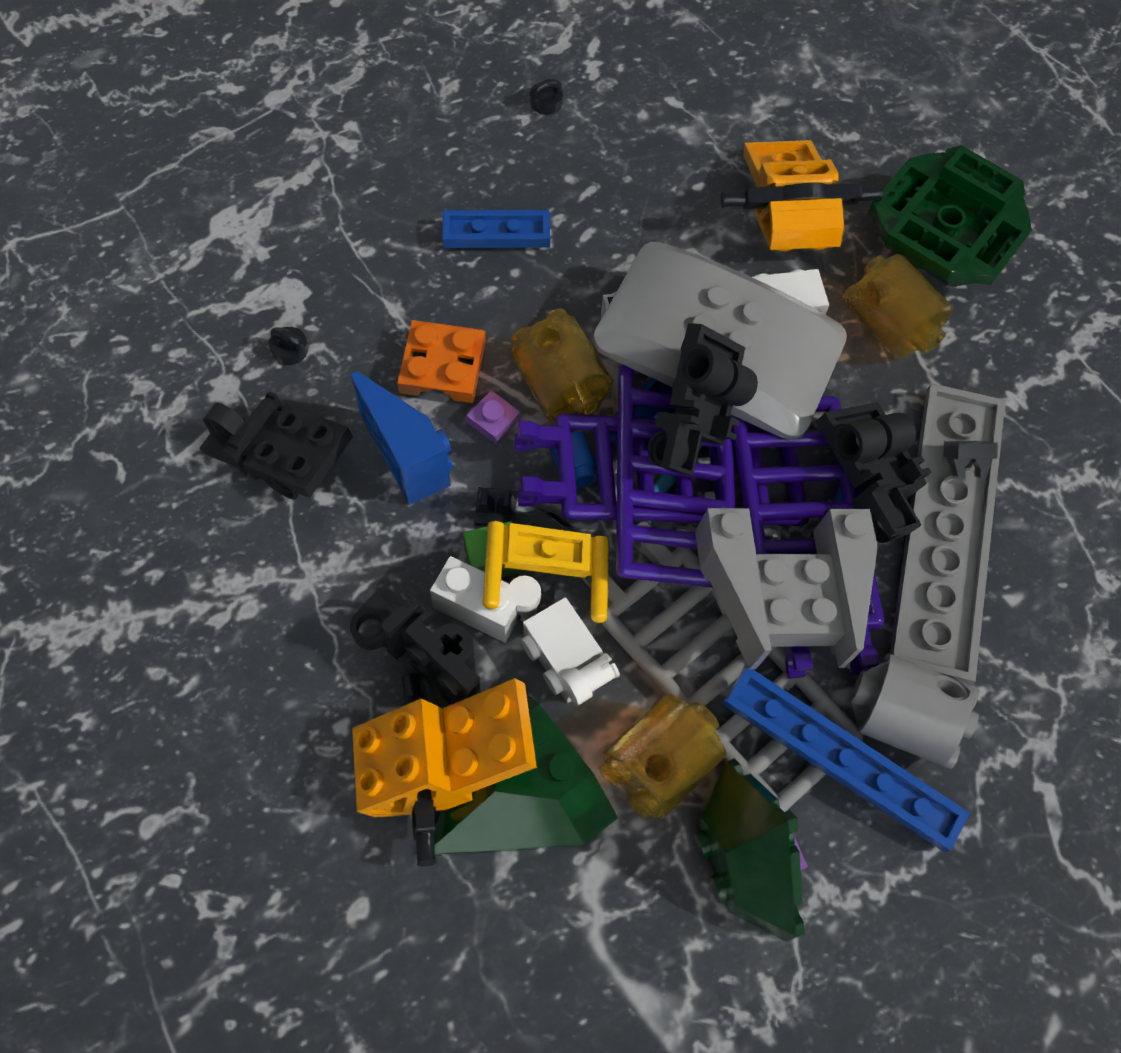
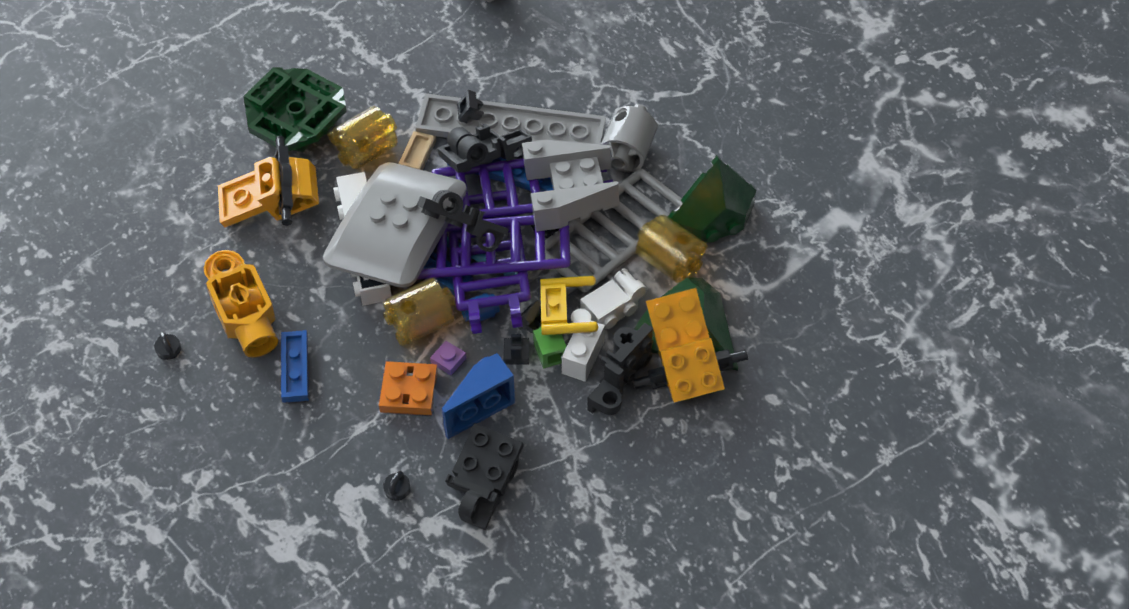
camera: 90 degrees left, 10 degrees down
(599, 159) = (241, 302): none -> light orange brick
(846, 759) = (657, 172): blue plate -> none
(889, 389) = (418, 150): none -> tan tile

